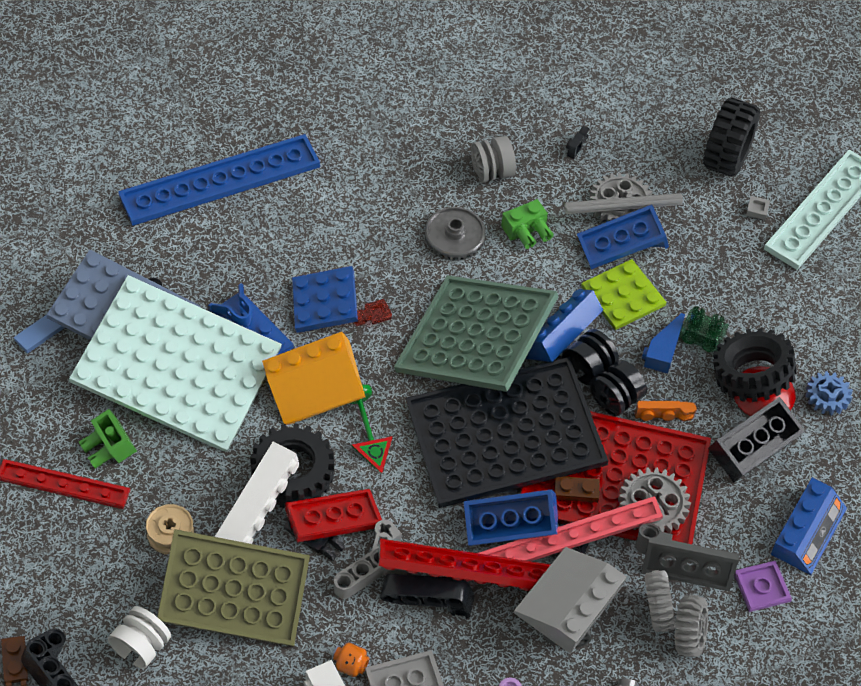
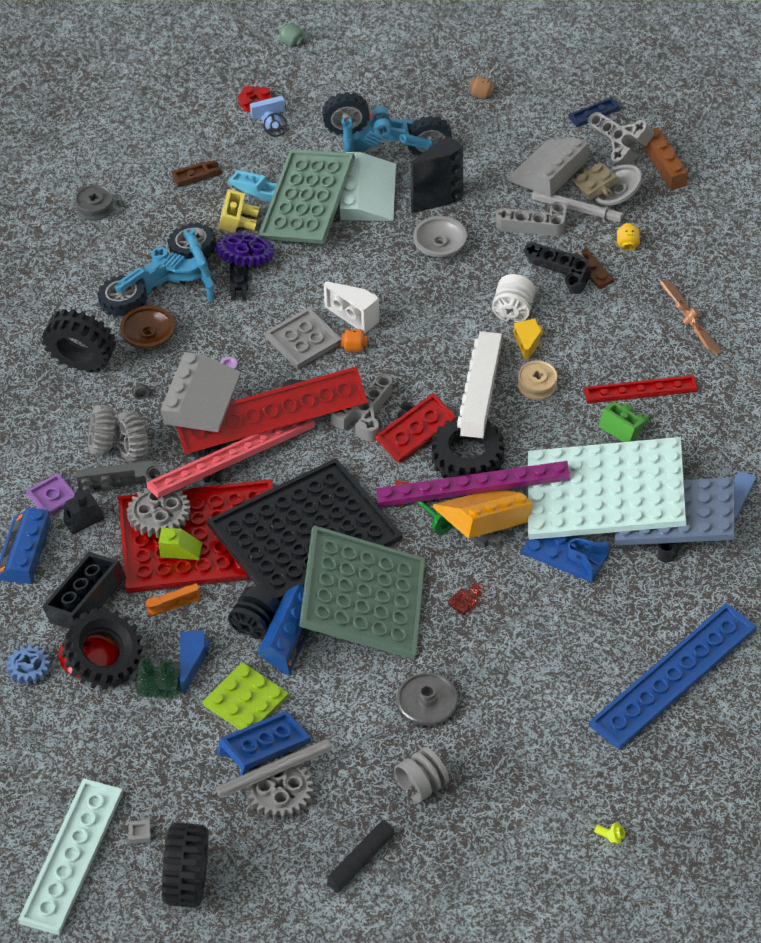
camera: 165 degrees right, 5 degrees down
(148, 588) = (527, 336): none -> yellow slope
(233, 588) = (462, 341): olive plate -> none
(288, 413) = (473, 484): none -> magenta plate
(324, 299) = (513, 591): blue plate -> none
(347, 75) = (615, 833): none -> neon yellow plate
(511, 517) = (271, 460): blue slope -> none
(524, 220) = (365, 730): bright green brick -> none
(570, 126) = (360, 856): none -> black brick
(575, 144) = (348, 834): black plate -> none
(577, 489) = (222, 504): reddish brown plate -> none
(618, 387) = (219, 592): black wheel -> none
(644, 453) = (179, 544): none -> lime slope
(737, 536) = (81, 512): none -> black torso

